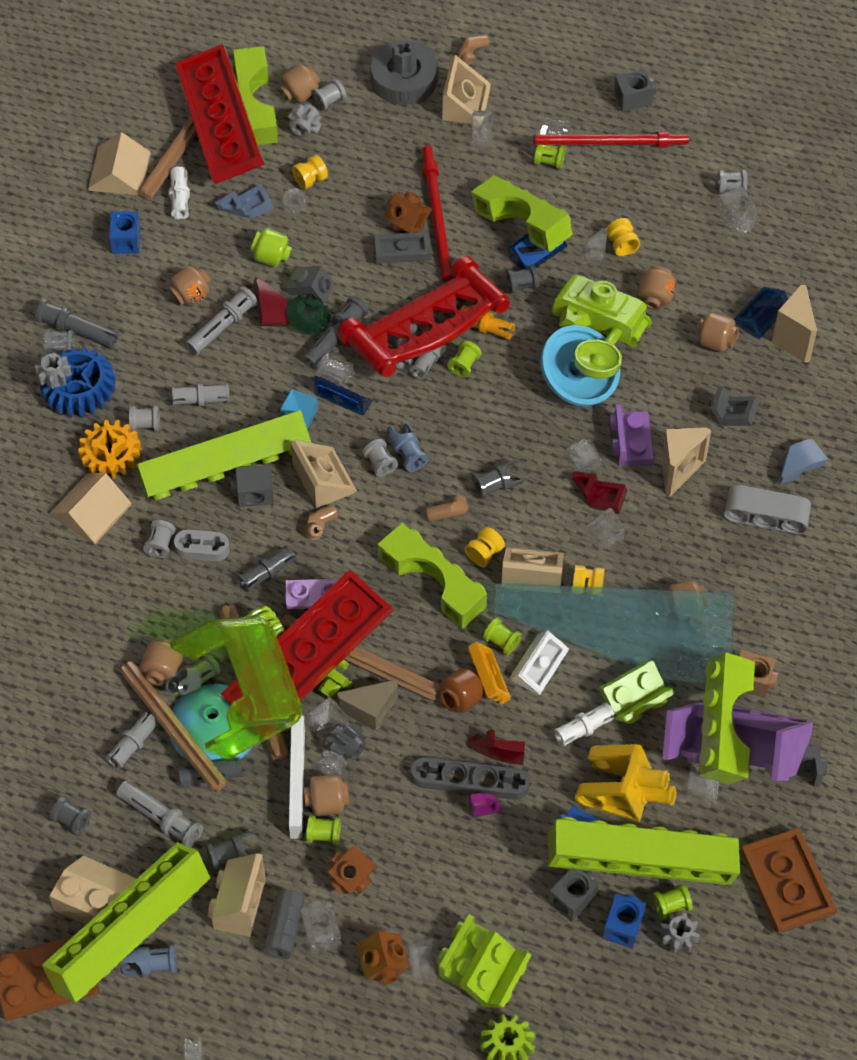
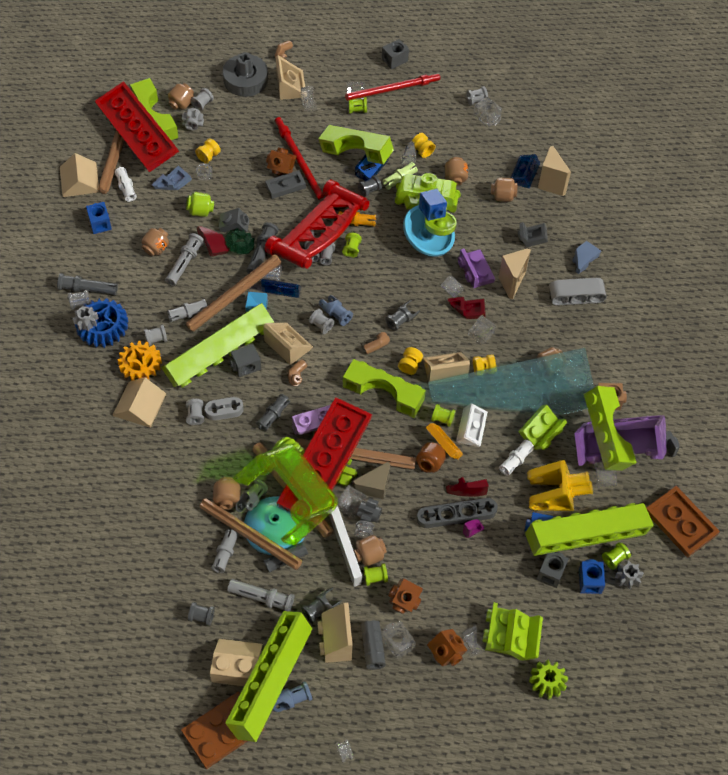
camera: 20 degrees left, 0 degrees up
(271, 386) = (233, 293): none -> medium nougat axle
(563, 276) = (397, 176): none -> yellowish green pin
(593, 329) = (432, 204): none -> blue brick

